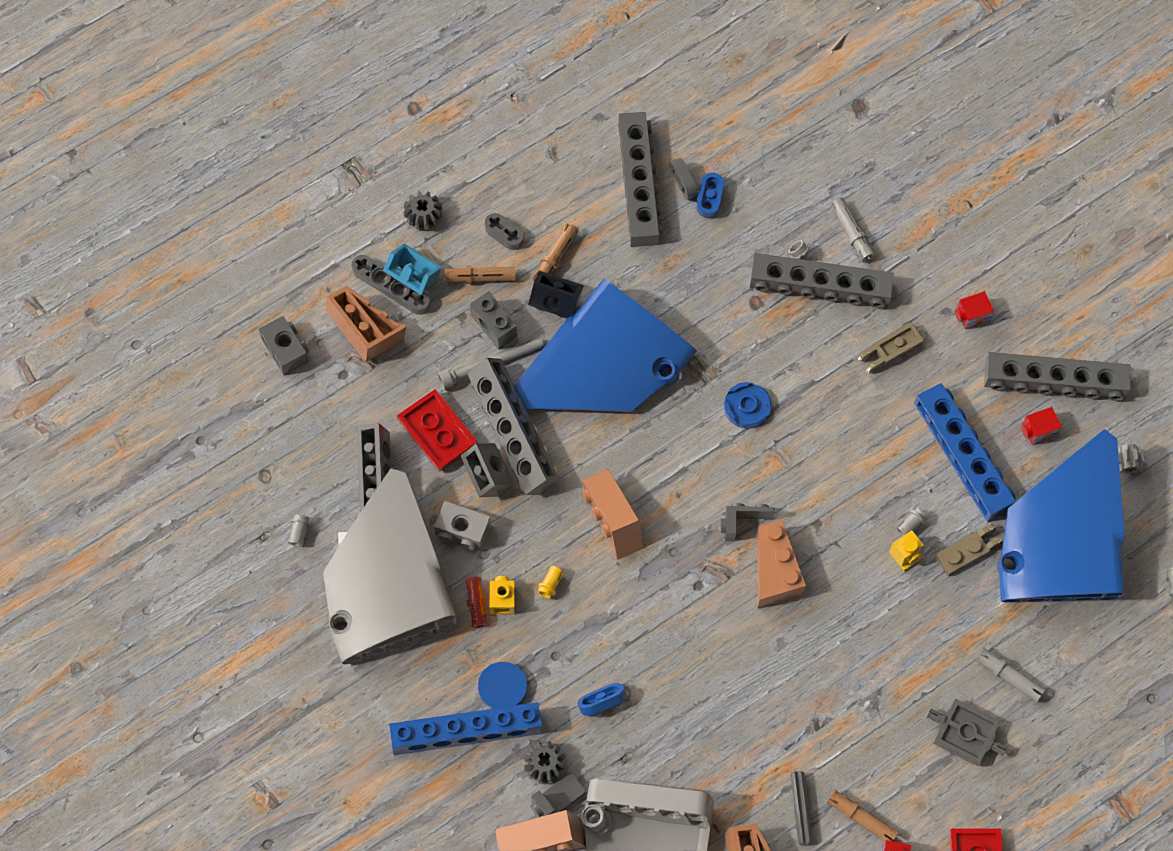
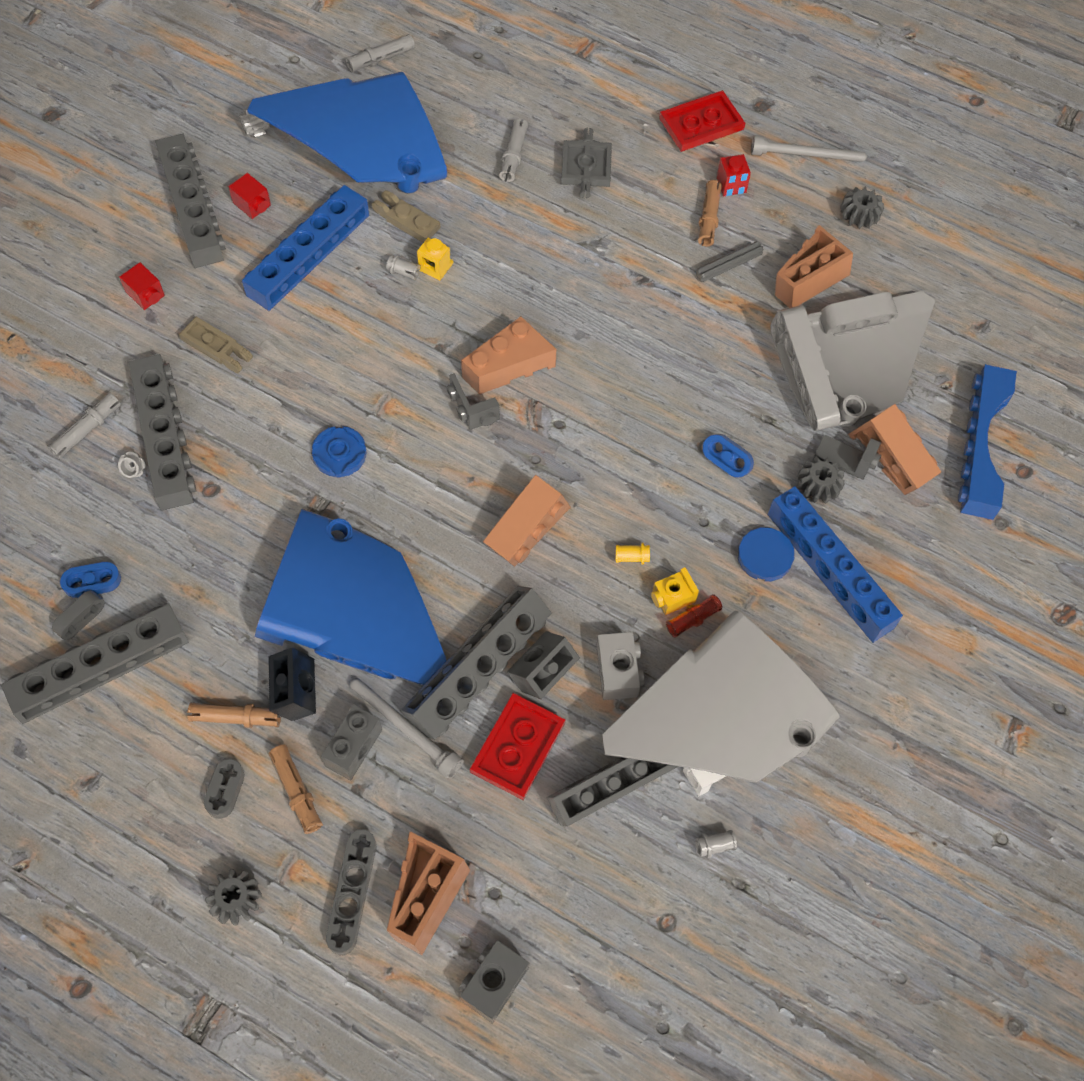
camera: 115 degrees left, 5 degrees down
(412, 264) = (317, 862): dark azure window -> none

